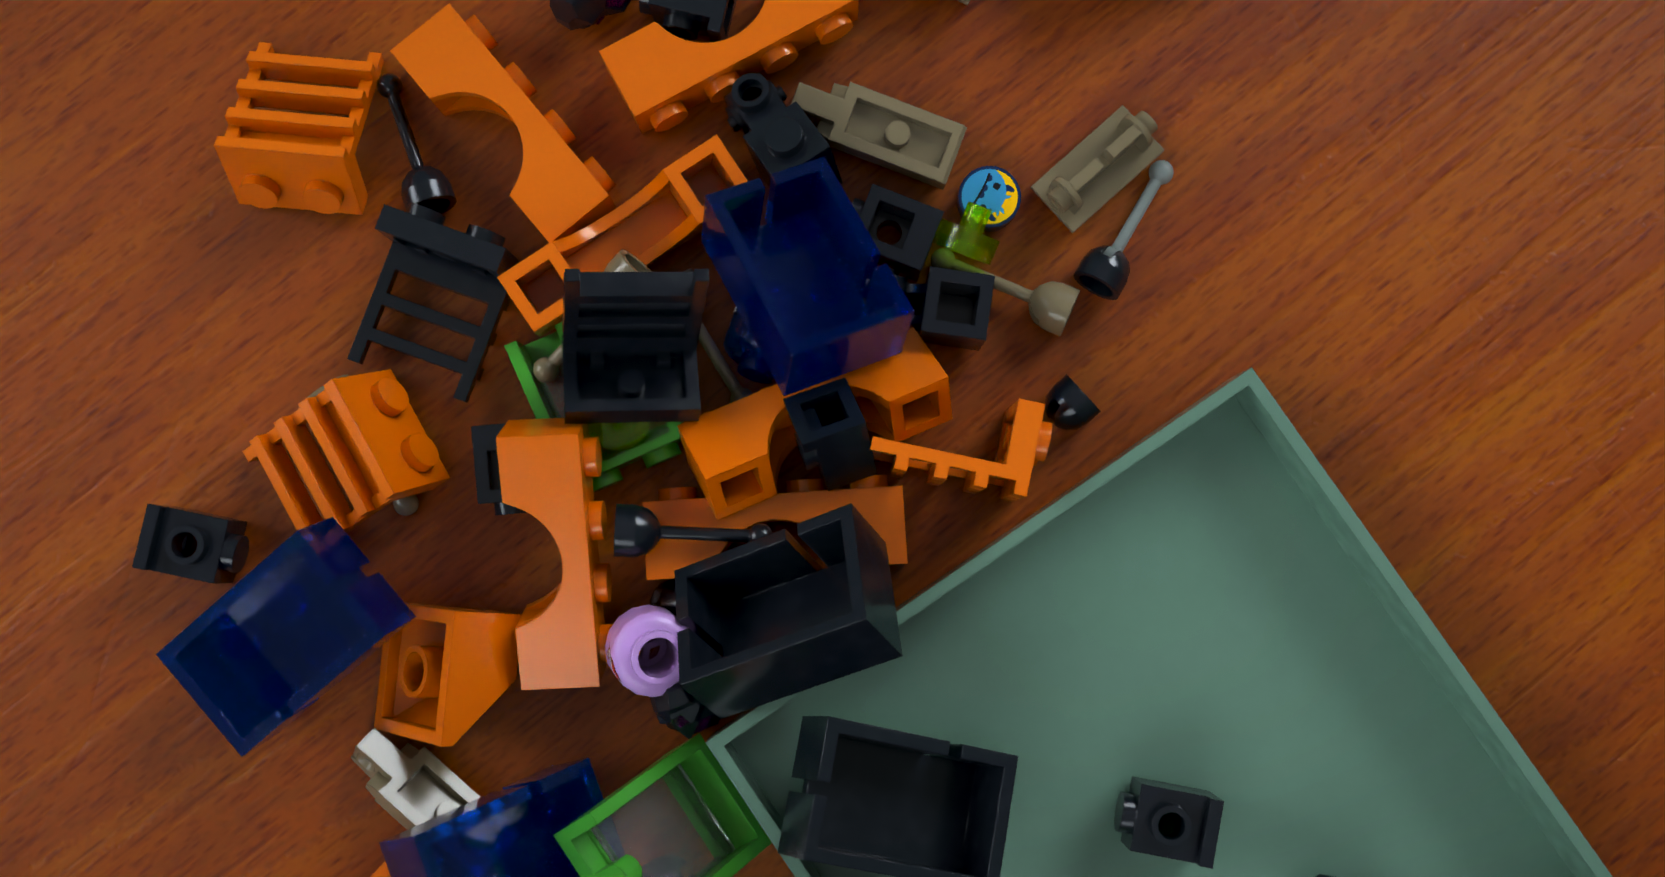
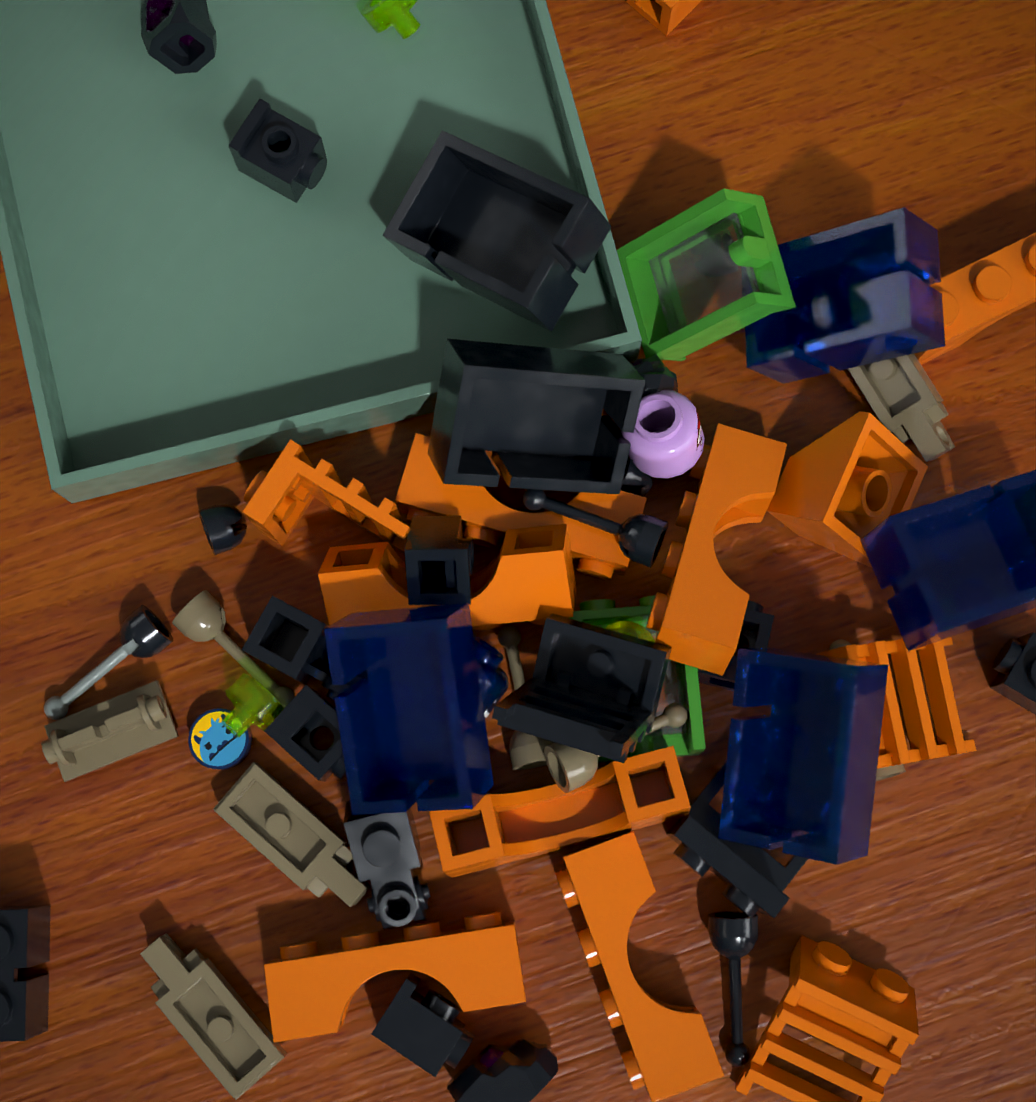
camera: 160 degrees left, 5 degrees down
(400, 368) = (807, 761): none -> clear blue piece

